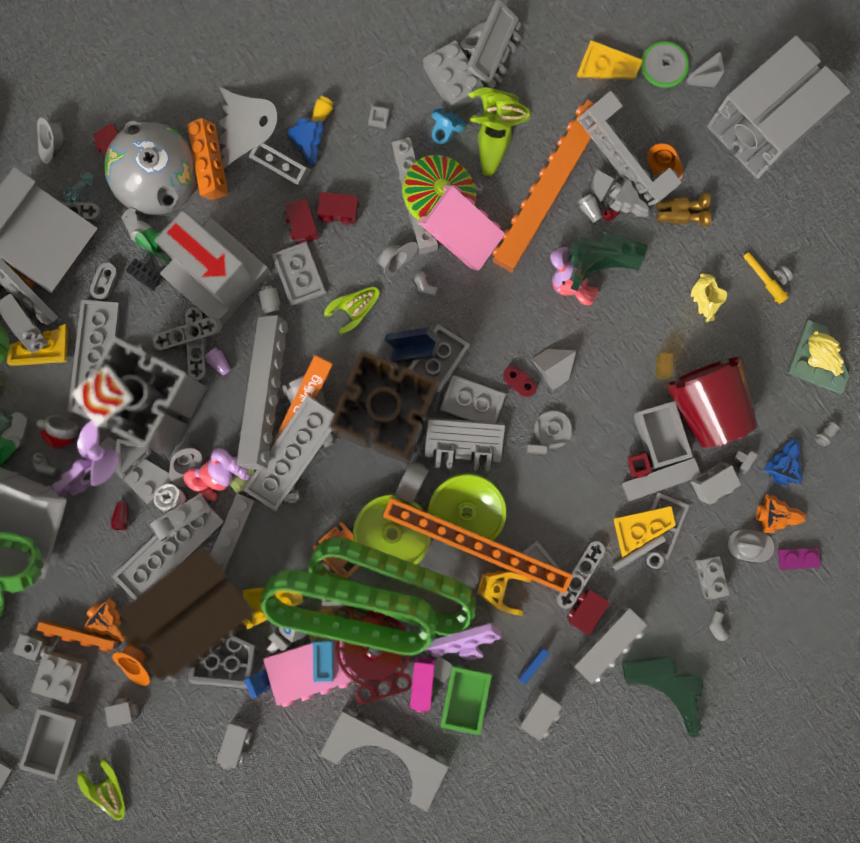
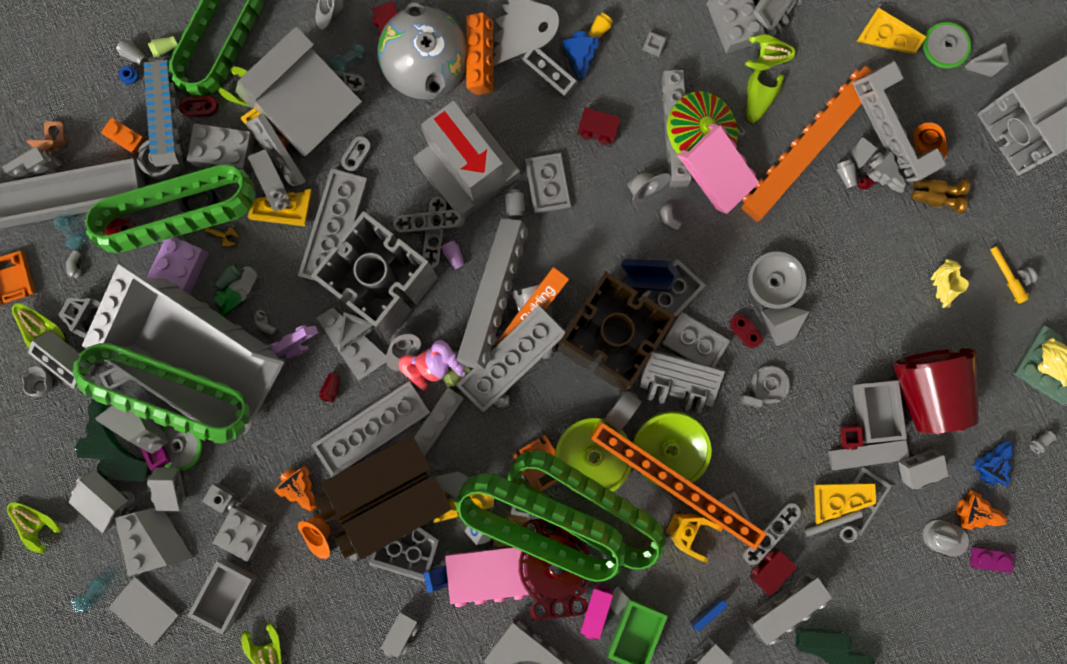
camera: 10 degrees right, 0 degrees up
(58, 431) = (285, 293): light grey piece -> none
(69, 634) = (259, 493): orange plate -> none
(102, 395) = (343, 268): slope -> none
(103, 460) = (327, 331): lavender piece -> none
(121, 712) = (295, 580): light grey brick -> none
(142, 233) = (404, 115): animal -> none
(144, 274) = (397, 155): black tyre -> none
(162, 496) = (381, 387): white wheel -> none
(180, 517) = (389, 400): light grey plate -> none
(253, 587) = (452, 483): none -> light grey slope
(279, 642) = (463, 541): light grey tile -> none
(301, 221) = (560, 132): dark red brick -> none
(323, 661) = (503, 569): dark azure tile -> none
(356, 306) = (598, 225): lime animal -> none
(448, 123) = (722, 62): dark azure tile -> none
(465, 642) = (648, 579): lavender plate -> none
(508, 112) = (784, 63): lime animal -> none
(540, 313) = (788, 275): none -> light grey dish
(559, 259) = (819, 236): hair -> none
(604, 253) = (854, 220): clear green arch -> none
(664, 366) = (893, 343): clear yellow piece -> none
(712, 577) = (902, 562): light grey brick -> none
(717, 628) = (897, 612): light grey arm -> none
(745, 460) = (956, 453): light grey tile -> none

